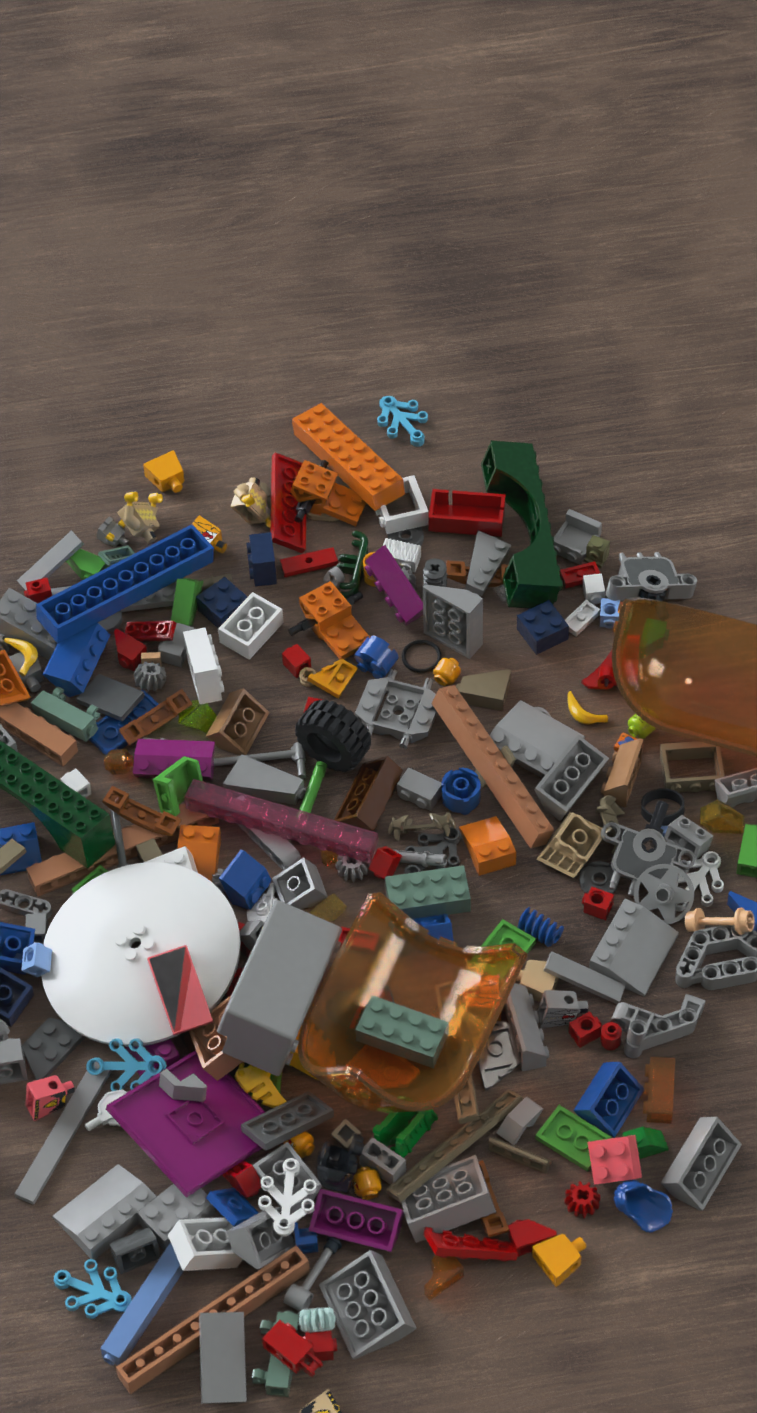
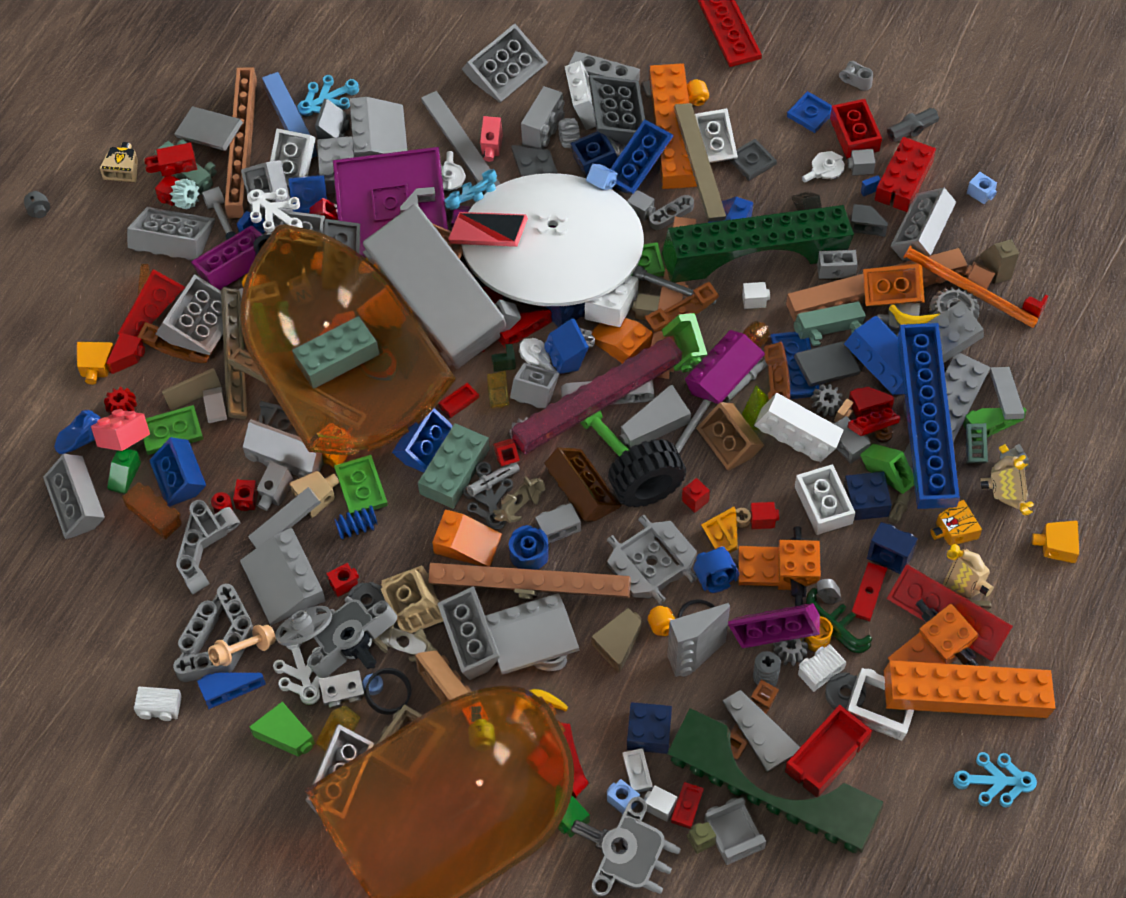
camera: 125 degrees right, 5 degrees up
(38, 590) = (973, 362): red brick -> none

